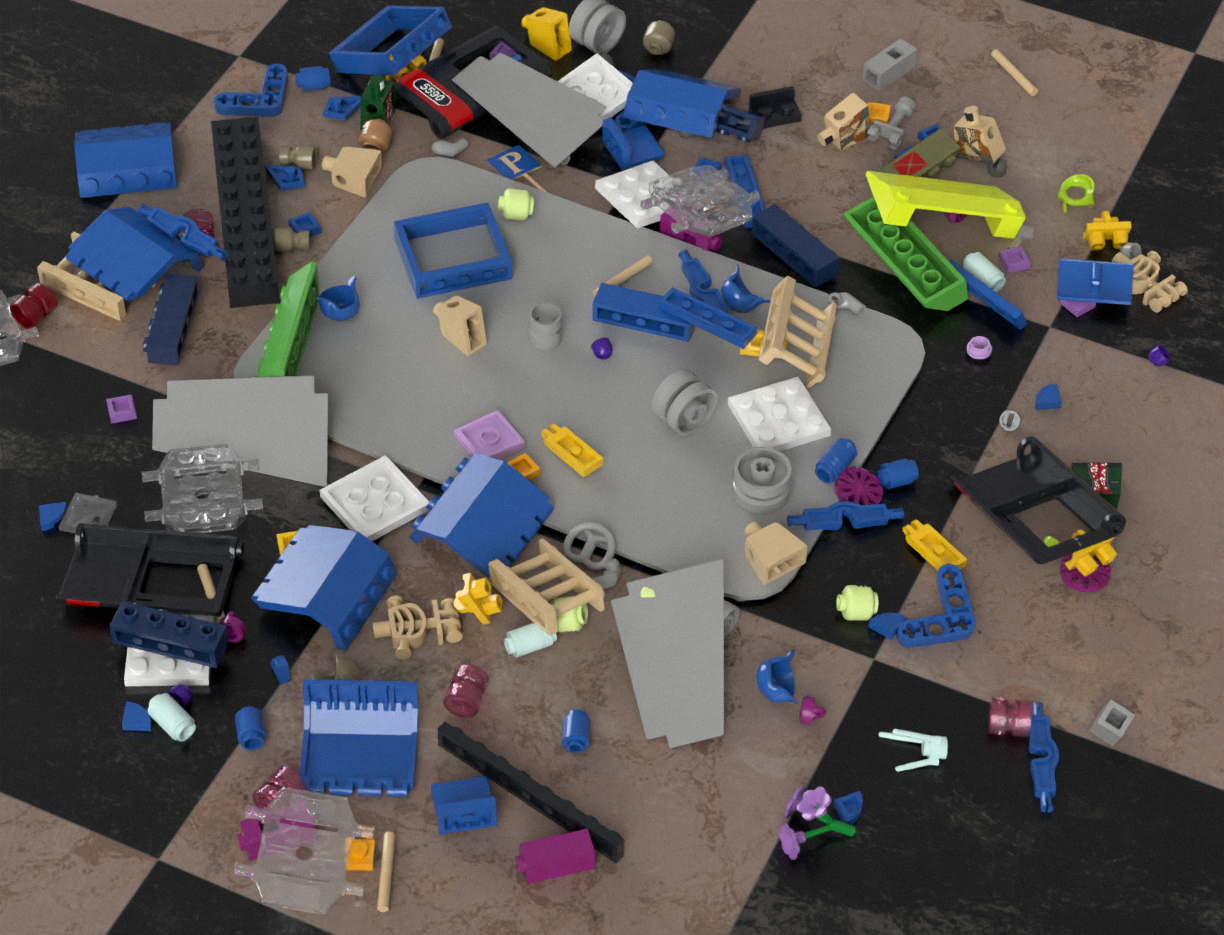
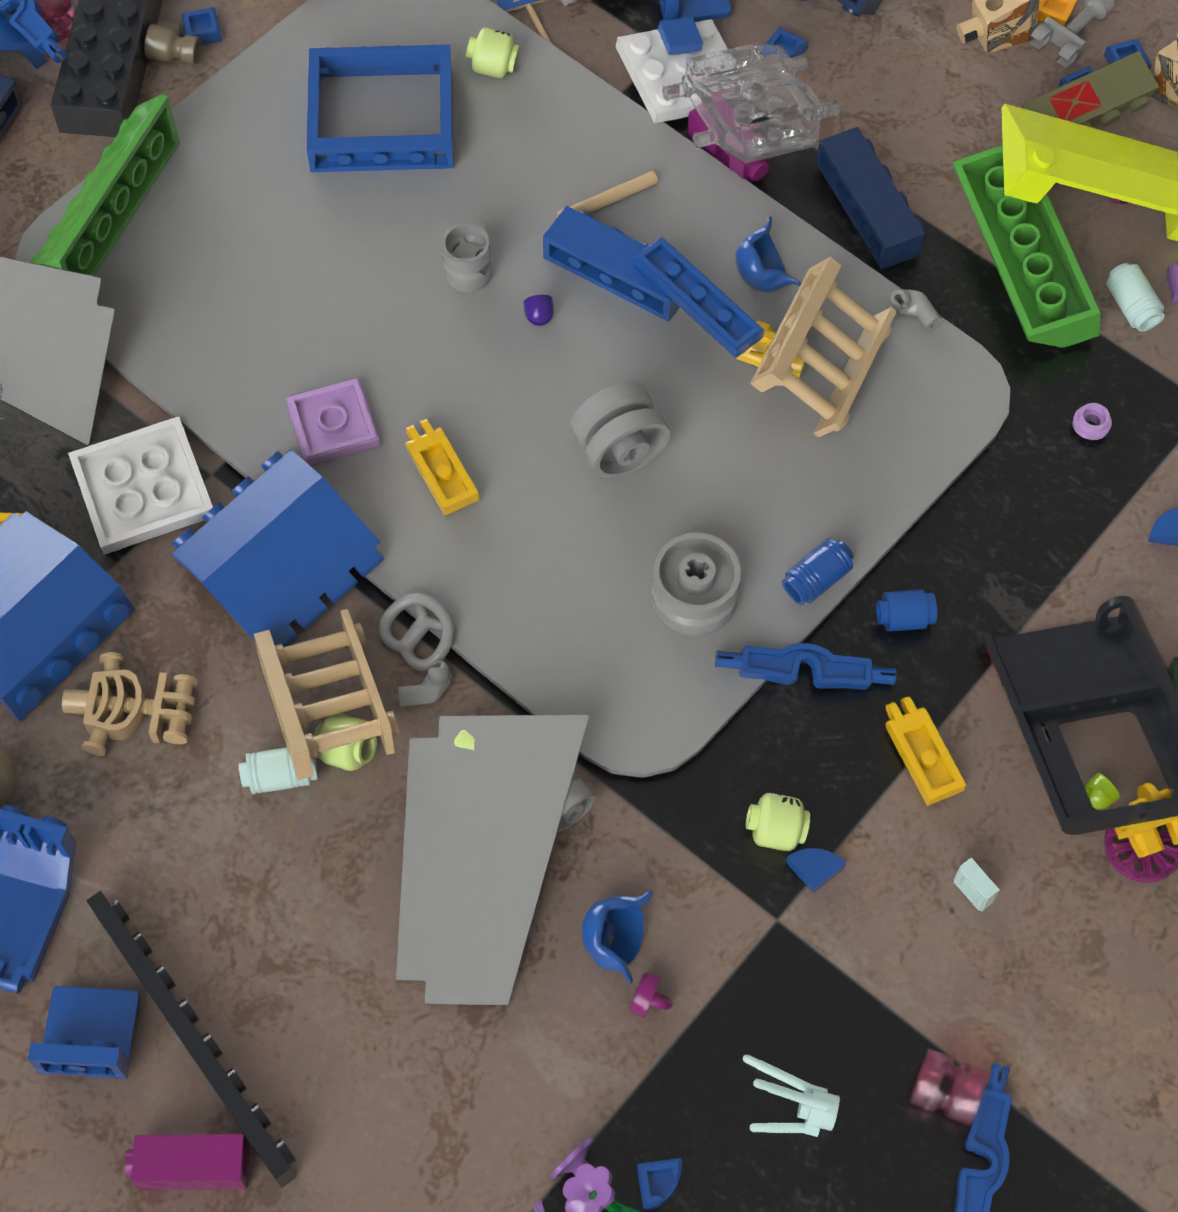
camera: 15 degrees right, 15 degrees up
(340, 301) = (194, 159): blue hair -> none
(461, 324) = (346, 214): tan torso -> none
(466, 690) = (152, 844): clear pink wheel -> none
(476, 599) = (222, 689): yellow hips -> none
(525, 466) = (358, 484): light orange plate -> none
(576, 731) = (291, 948): blue brick -> none
(638, 171) = (680, 35): none -> blue tile
(700, 280) = (712, 227): blue piece -> none
(741, 173) = (831, 80): blue tile -> none
(773, 551) = (676, 706): tan torso -> none
(779, 415) = (759, 476): white plate -> none
(857, 488) = (840, 623): magenta wheel -> none
(952, 614) = (916, 874): blue beam -> none
(990, 611) = (976, 885): none -> light aqua tile
(991, 298) = (1130, 338): blue tile -> none
(1004, 419) = (1095, 549): hinge -> none
(1112, 722) = (1107, 1139): light grey brick -> none

